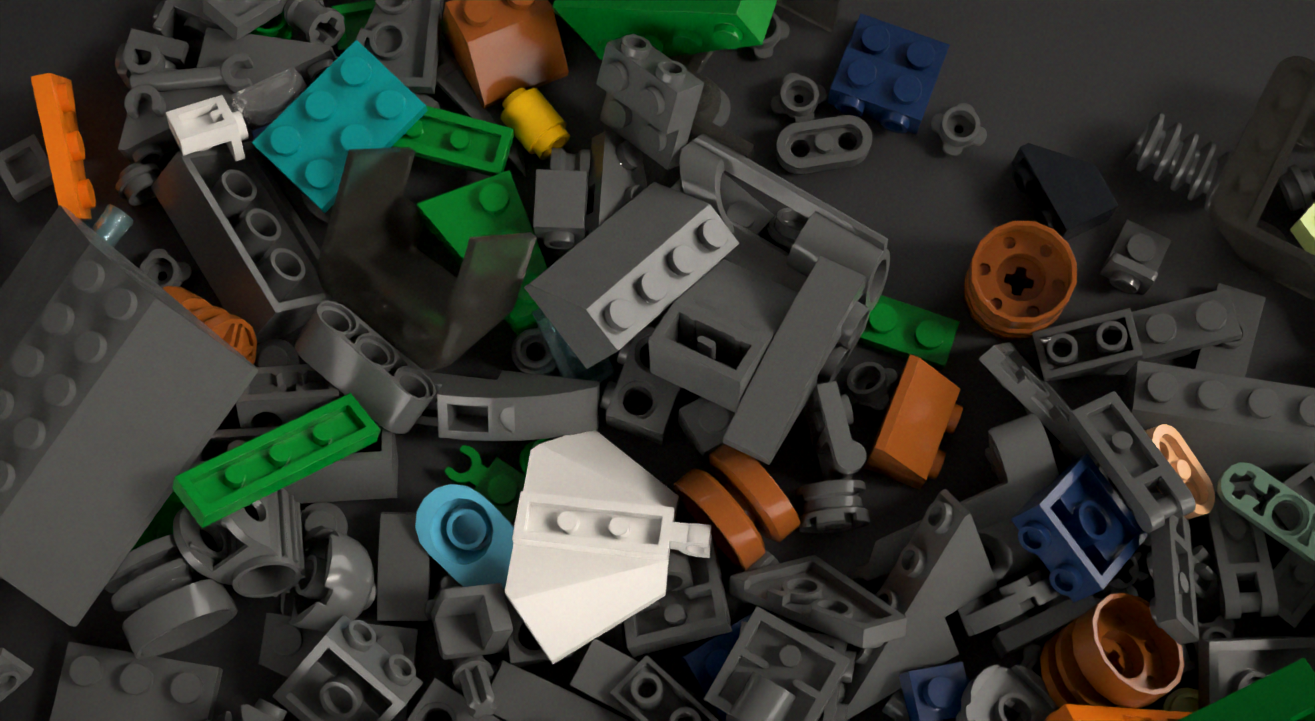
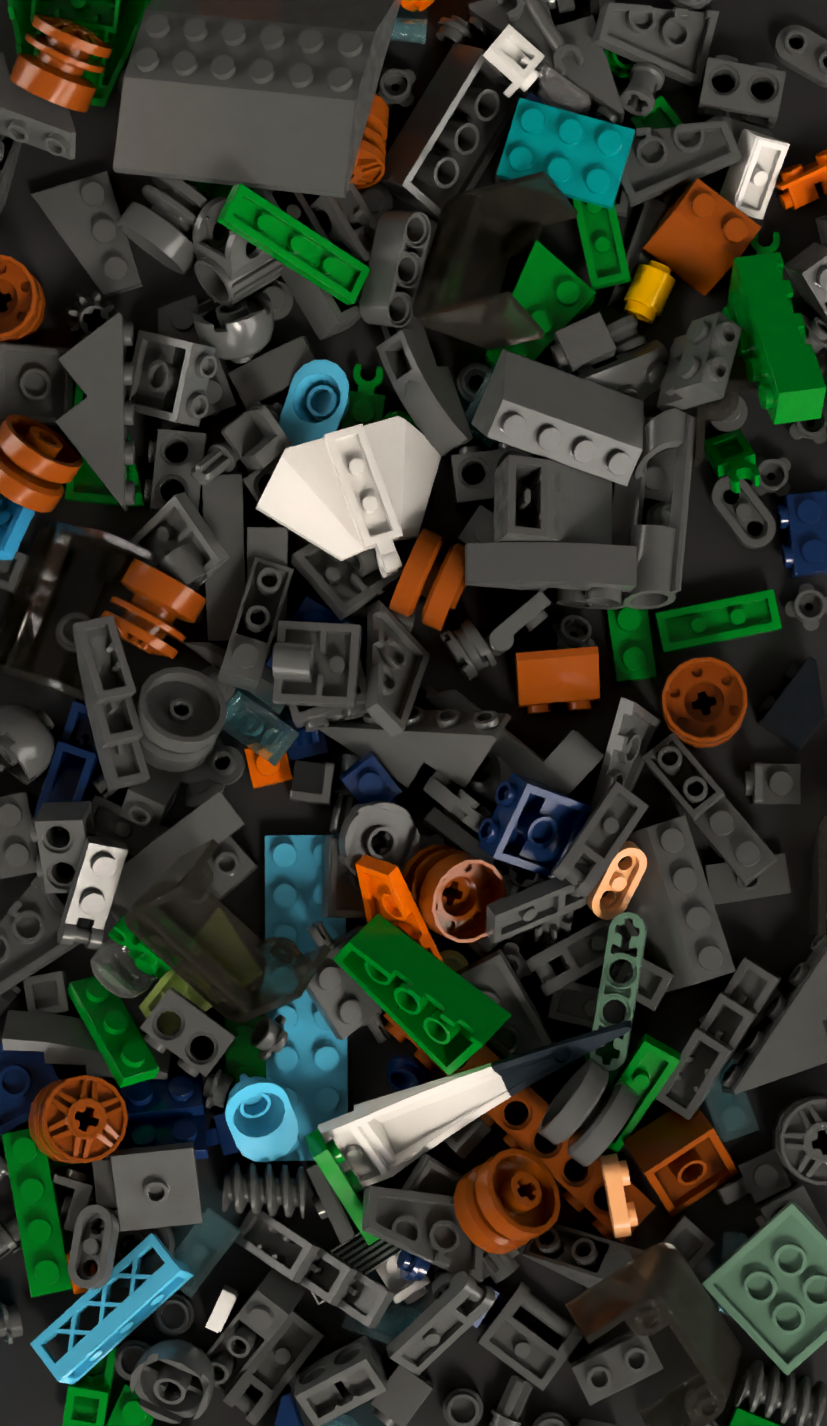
camera: 65 degrees right, 10 degrees up
(764, 120) = (734, 457): none -> green plate
(930, 228) = (718, 621): none -> green plate

